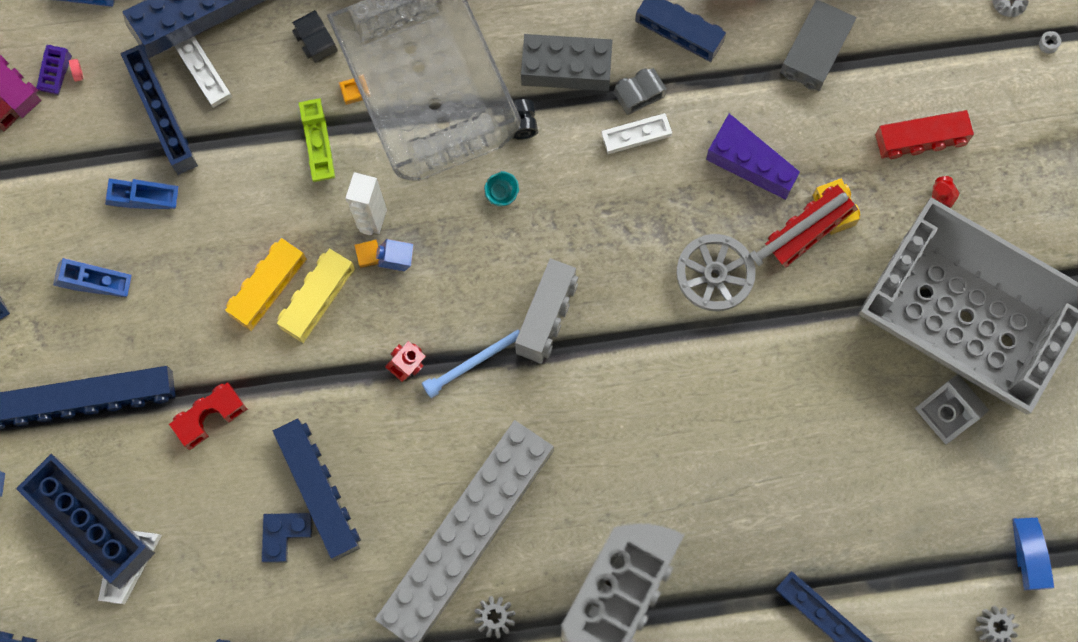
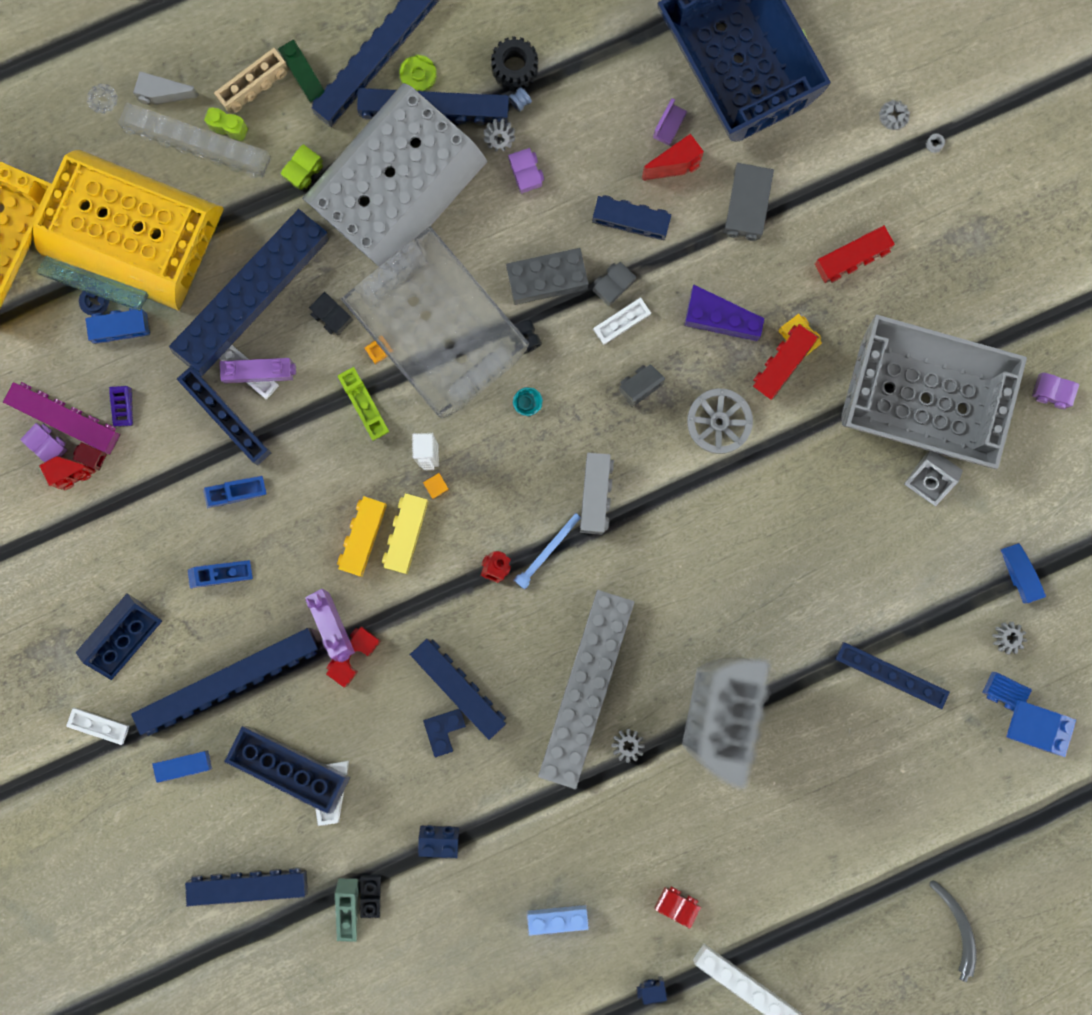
camera: 20 degrees left, 10 degrees up
(76, 70) = (141, 401): coral tile -> none
(192, 370) = (330, 625): none -> medium lavender brick
(211, 70) = (257, 370): none -> medium lavender brick
(394, 255) = (459, 482): brick -> none
(637, 208) = (641, 385): none -> dark grey slope
(799, 228) = (777, 368): light grey bar -> none
(945, 191) = (883, 299): red rock -> none

